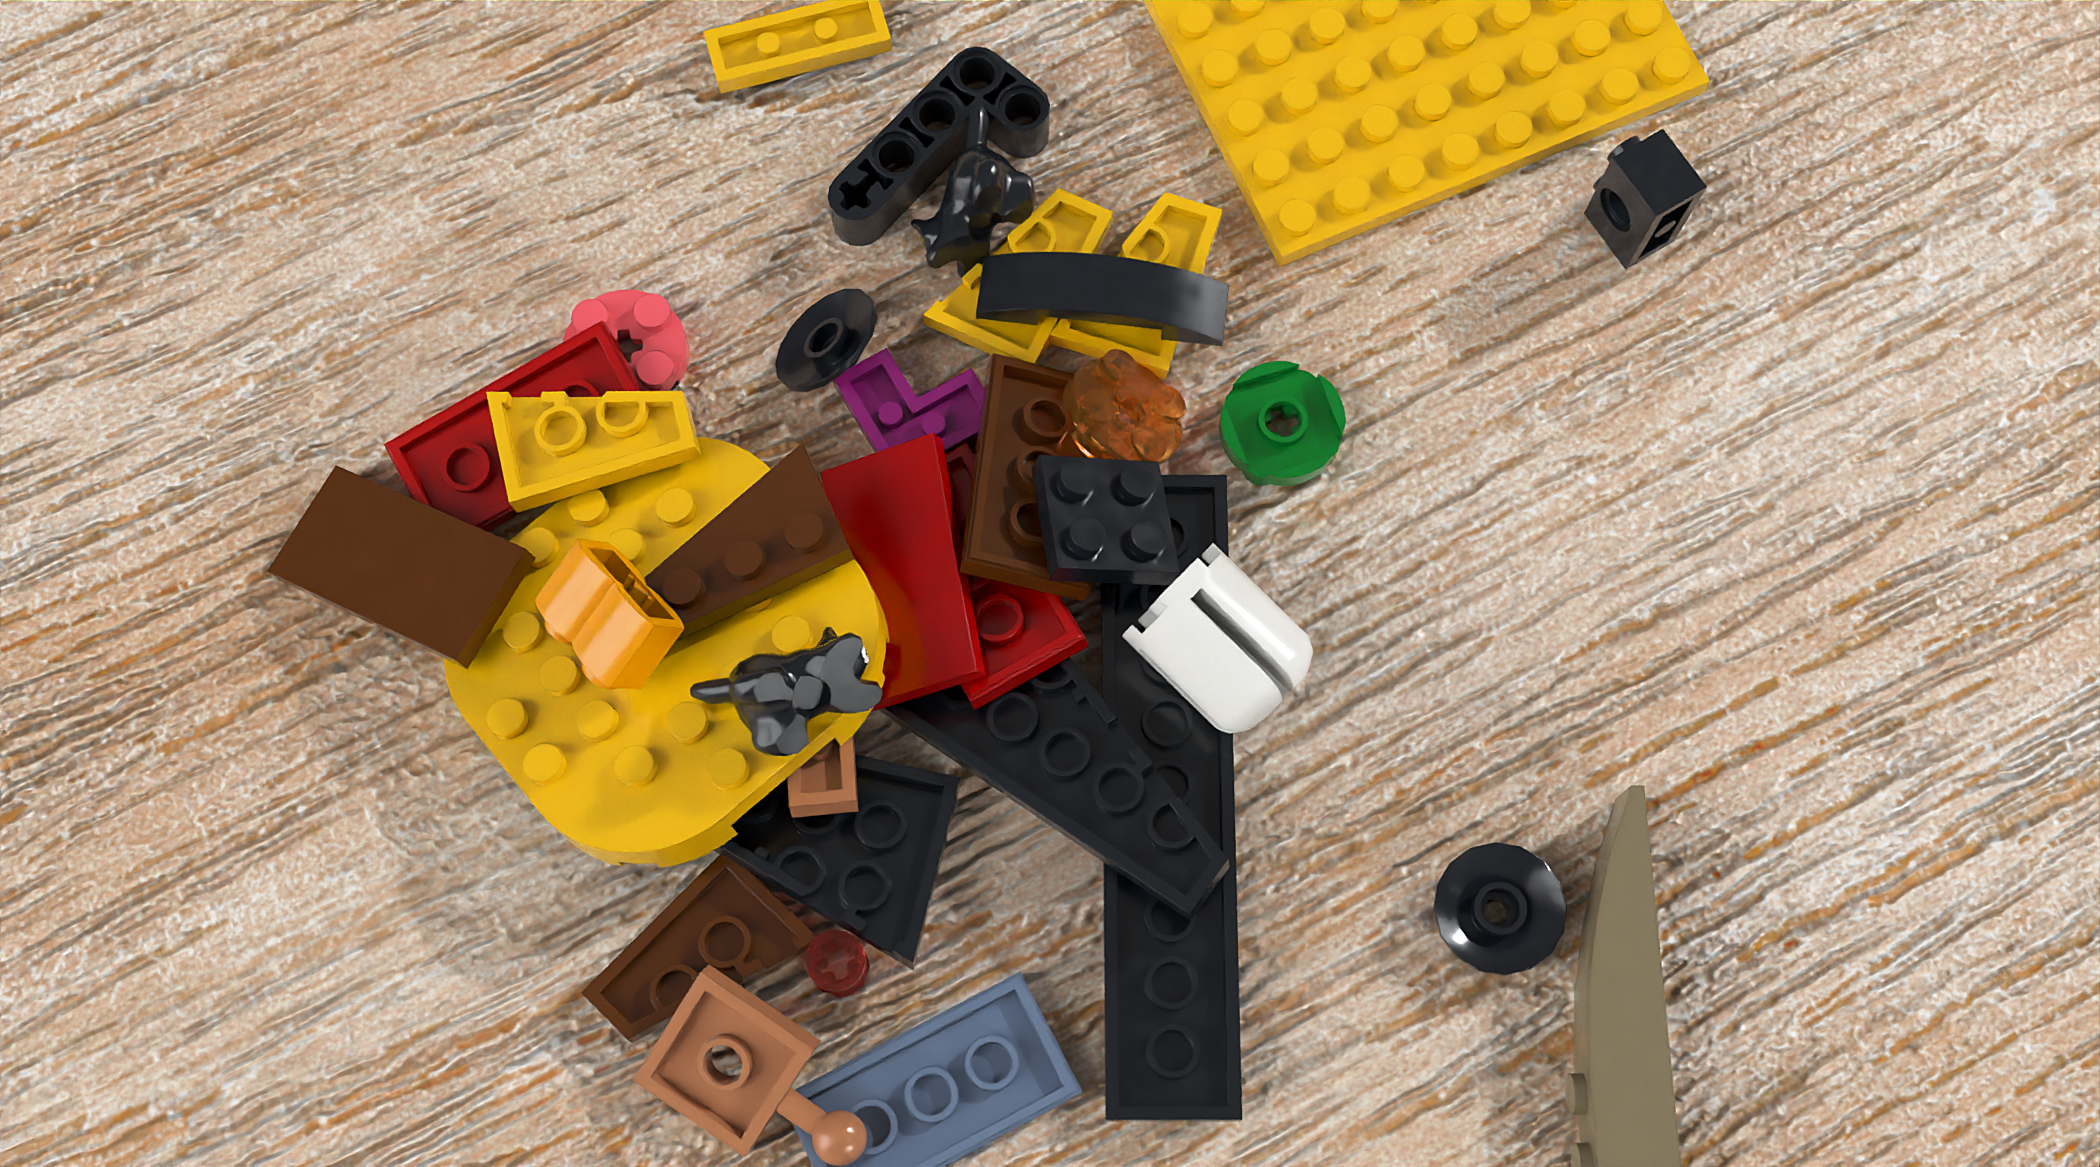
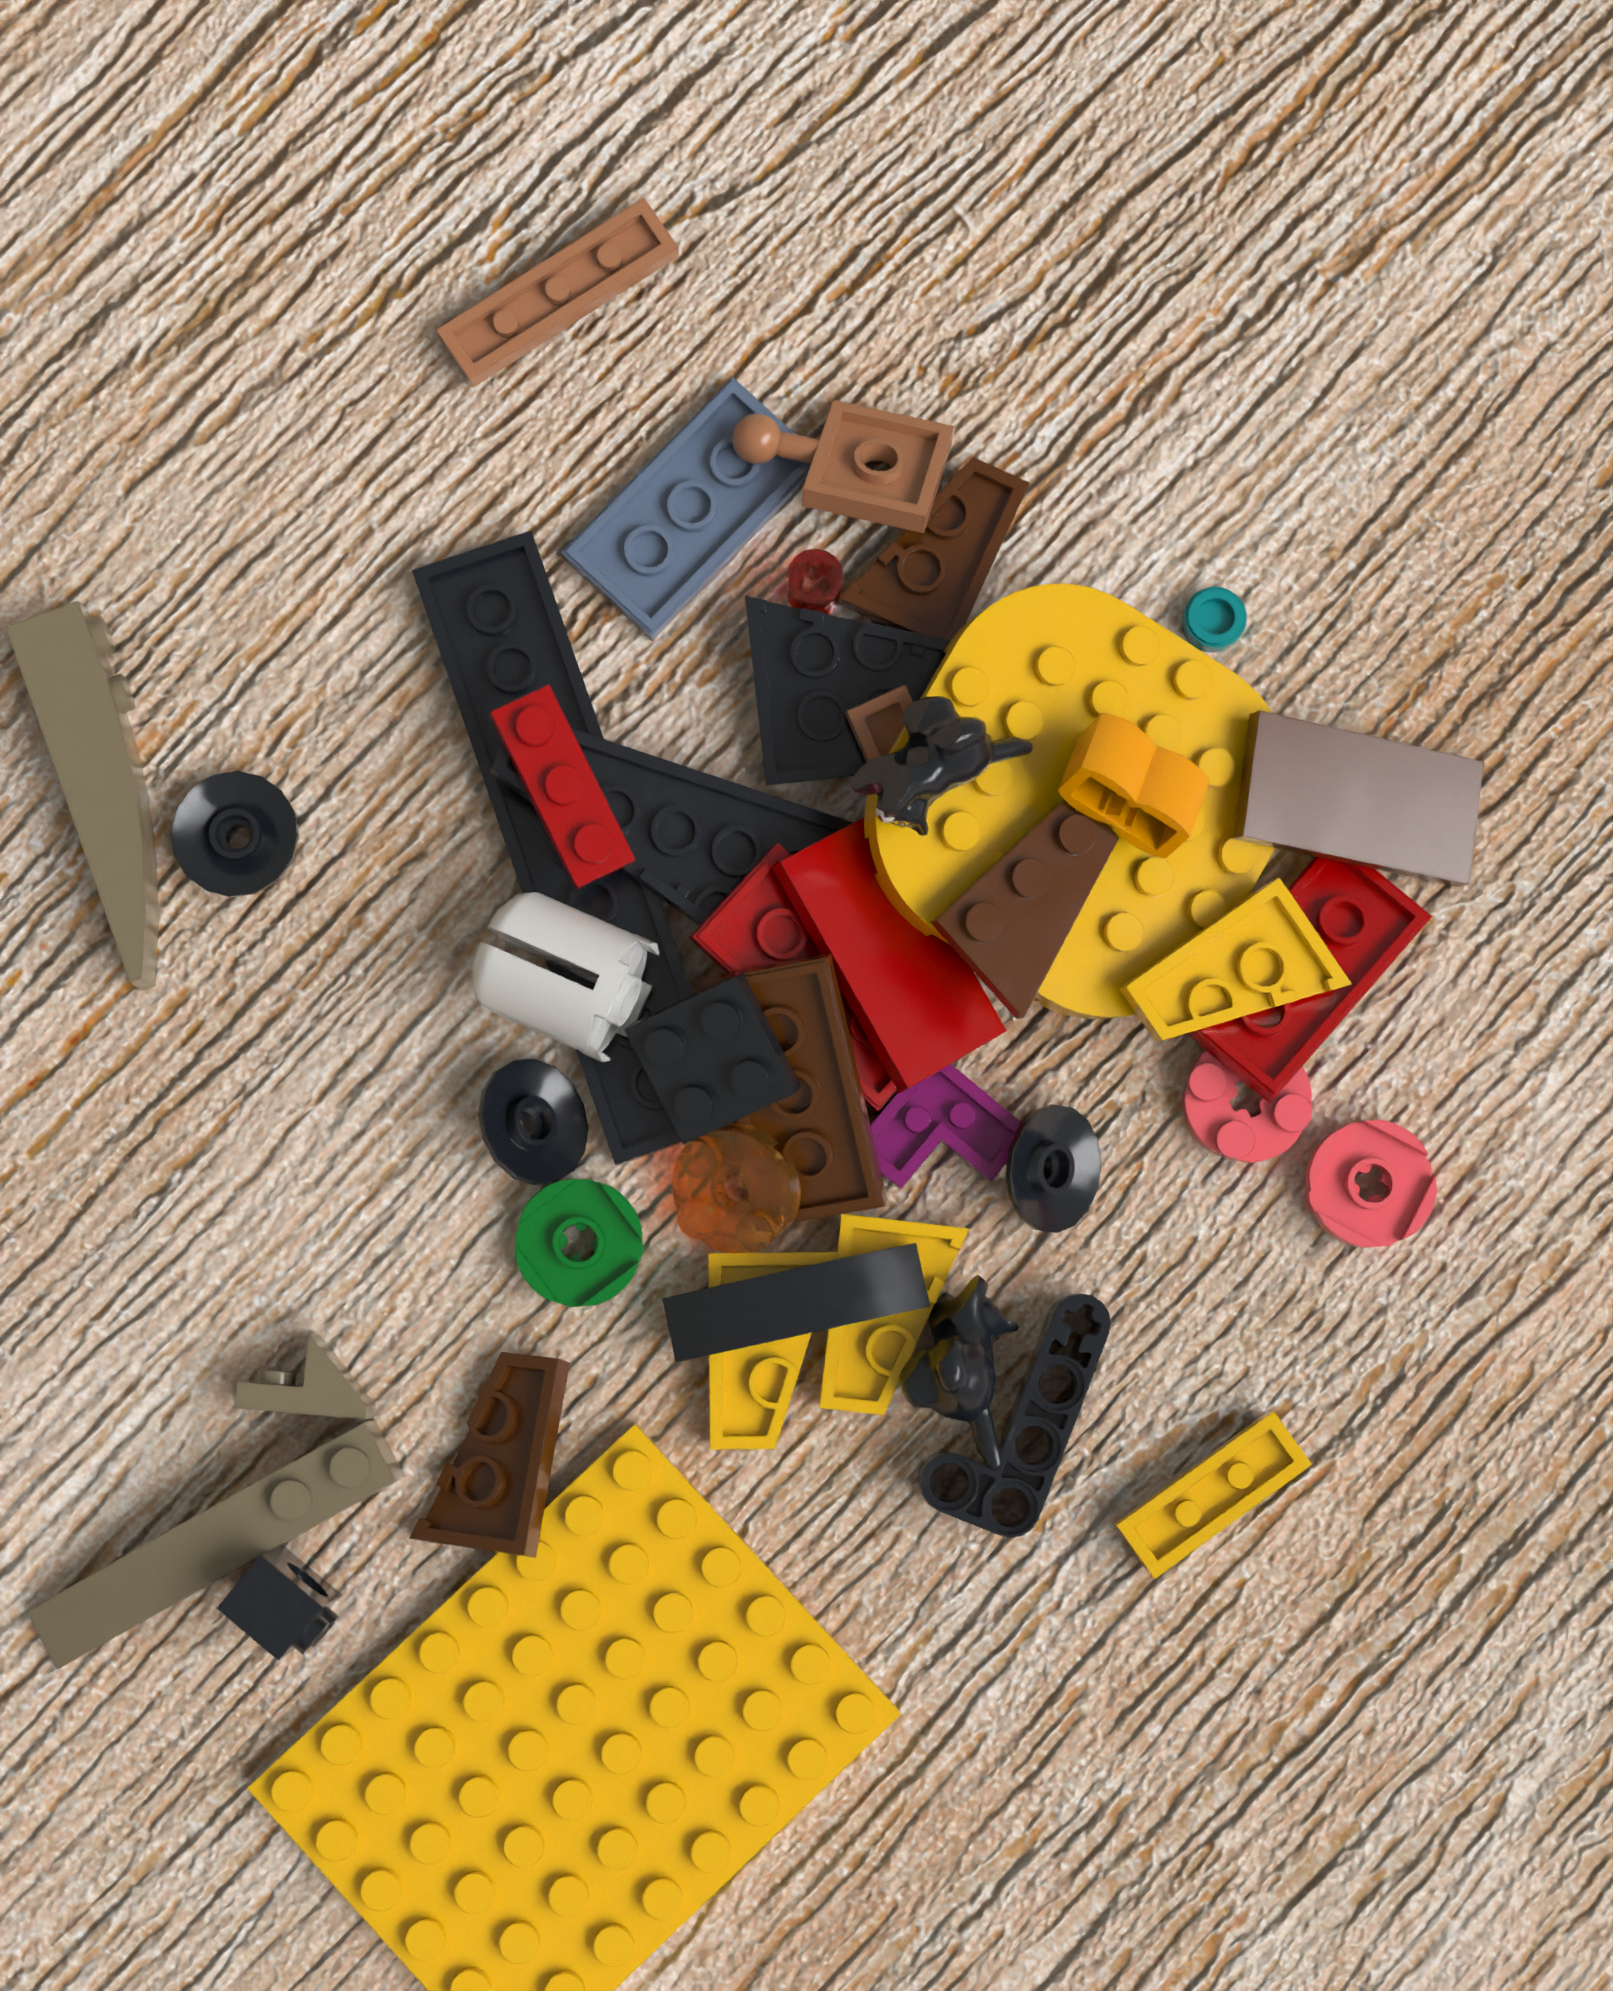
camera: 155 degrees right, 10 degrees up
(459, 799) = (1214, 619): none -> teal tile
(548, 273) = (1404, 1171): none -> coral plate
(1164, 818) = (562, 787): none -> red plate
(1275, 527) = (551, 1118): none -> black dish
(1413, 255) = (503, 1470): none -> reddish brown wing
(1555, 365) = (325, 1391): none -> dark tan slope
(1675, 279) = (216, 1543): none -> dark tan slope

